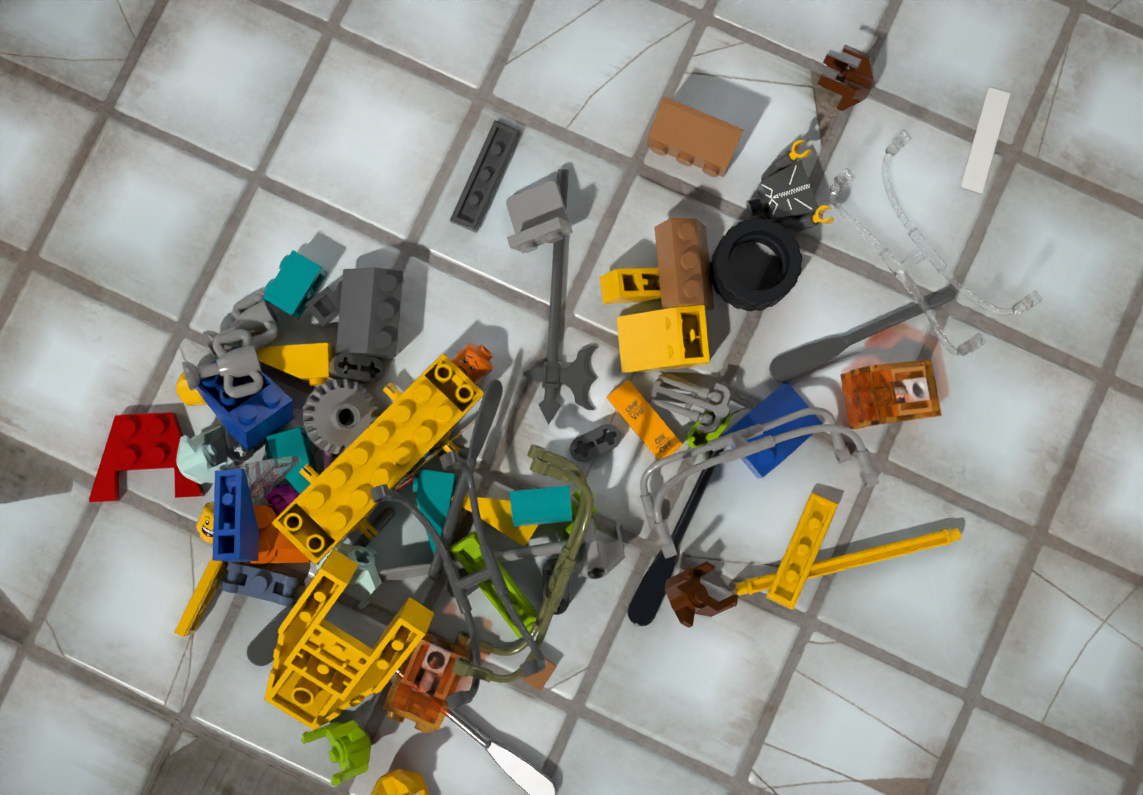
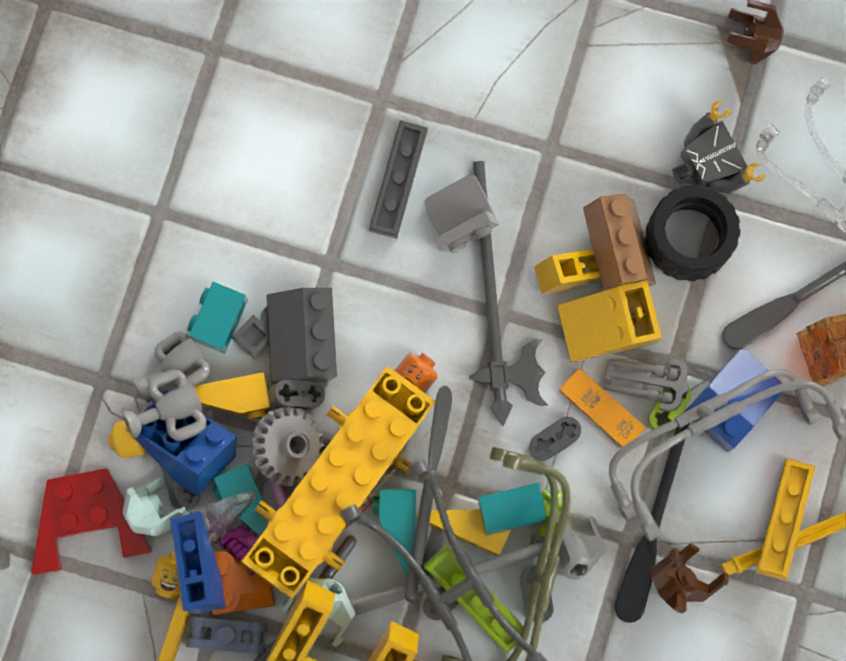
camera: 15 degrees left, 5 degrees down
(693, 137) = (609, 112): medium nougat slope -> none

